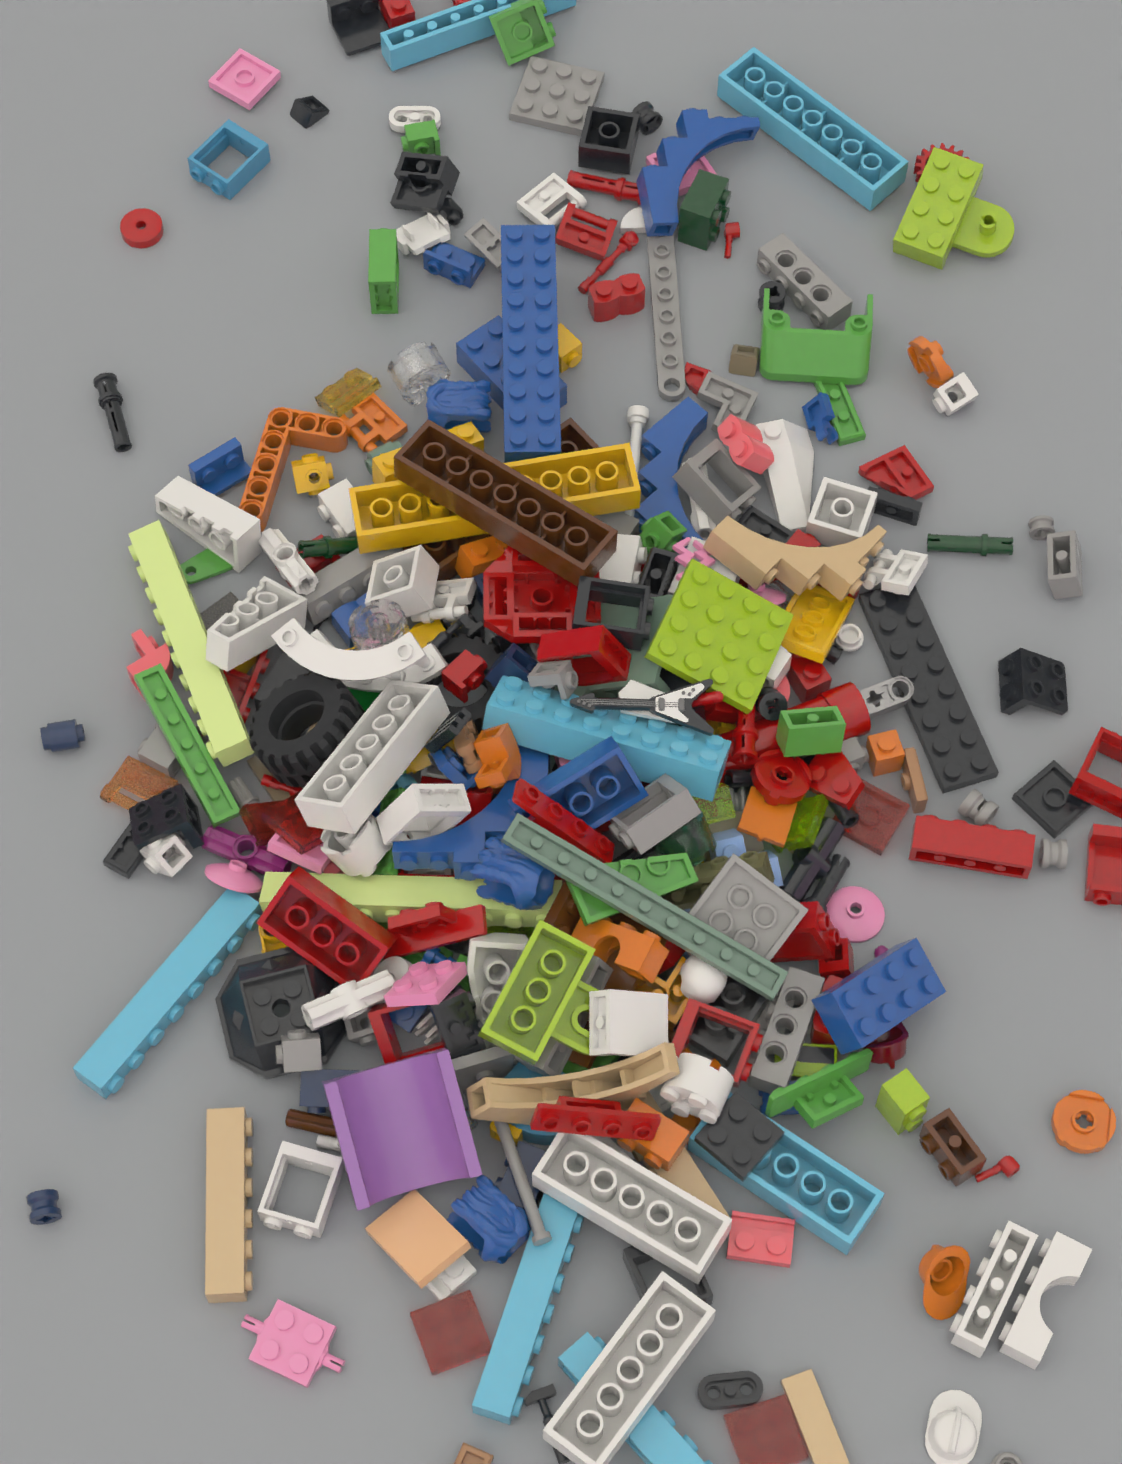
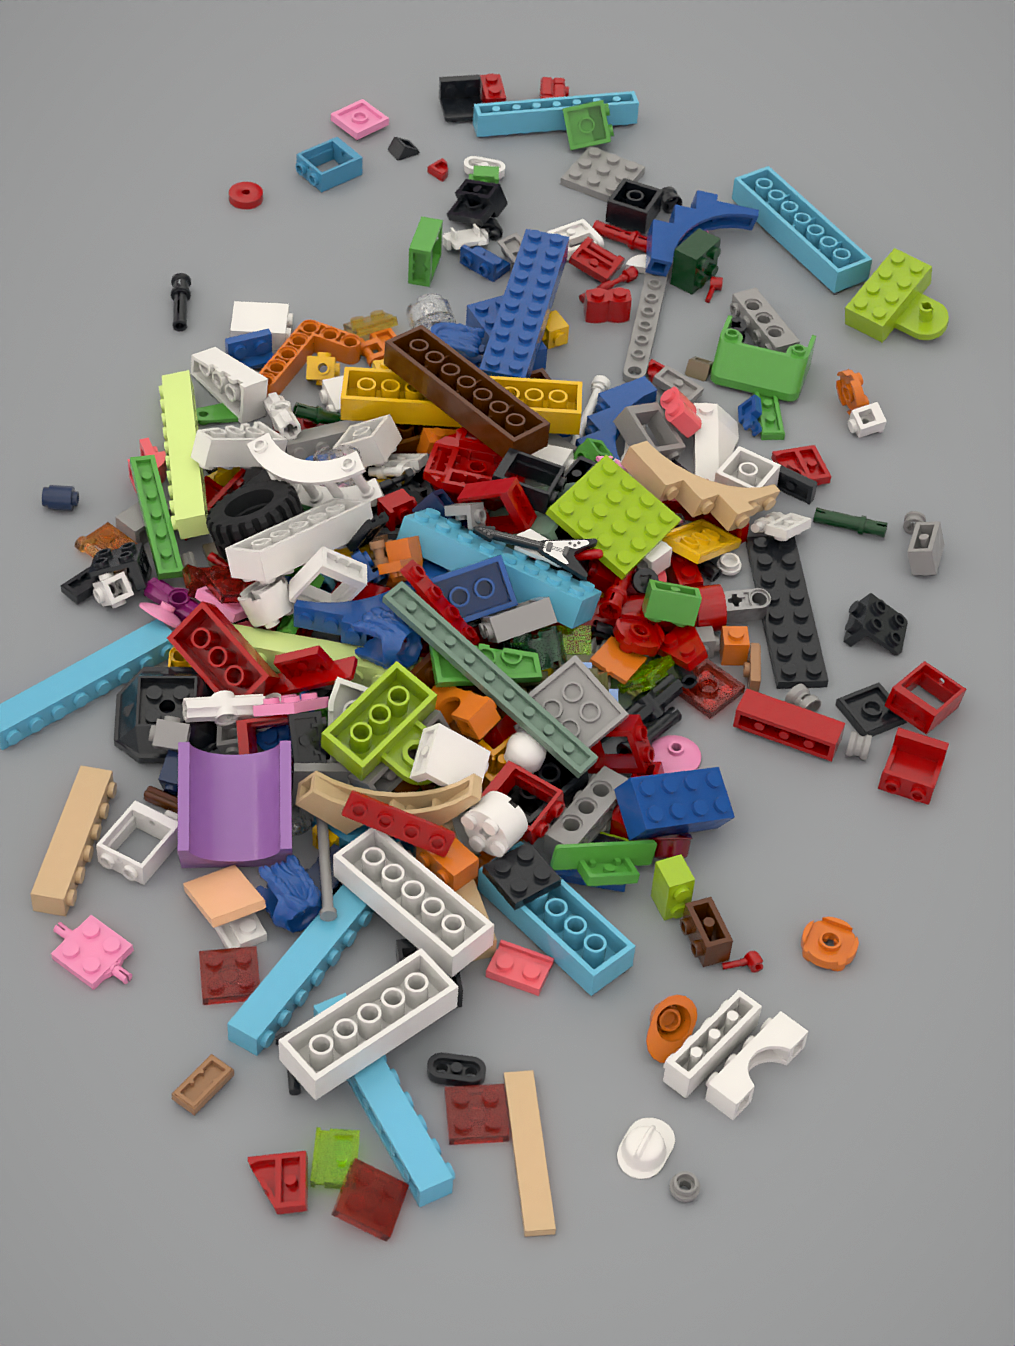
camera: 10 degrees right, 15 degrees down
(217, 420) = (258, 316): none -> white brick
(360, 133) = (438, 169): none -> red tile

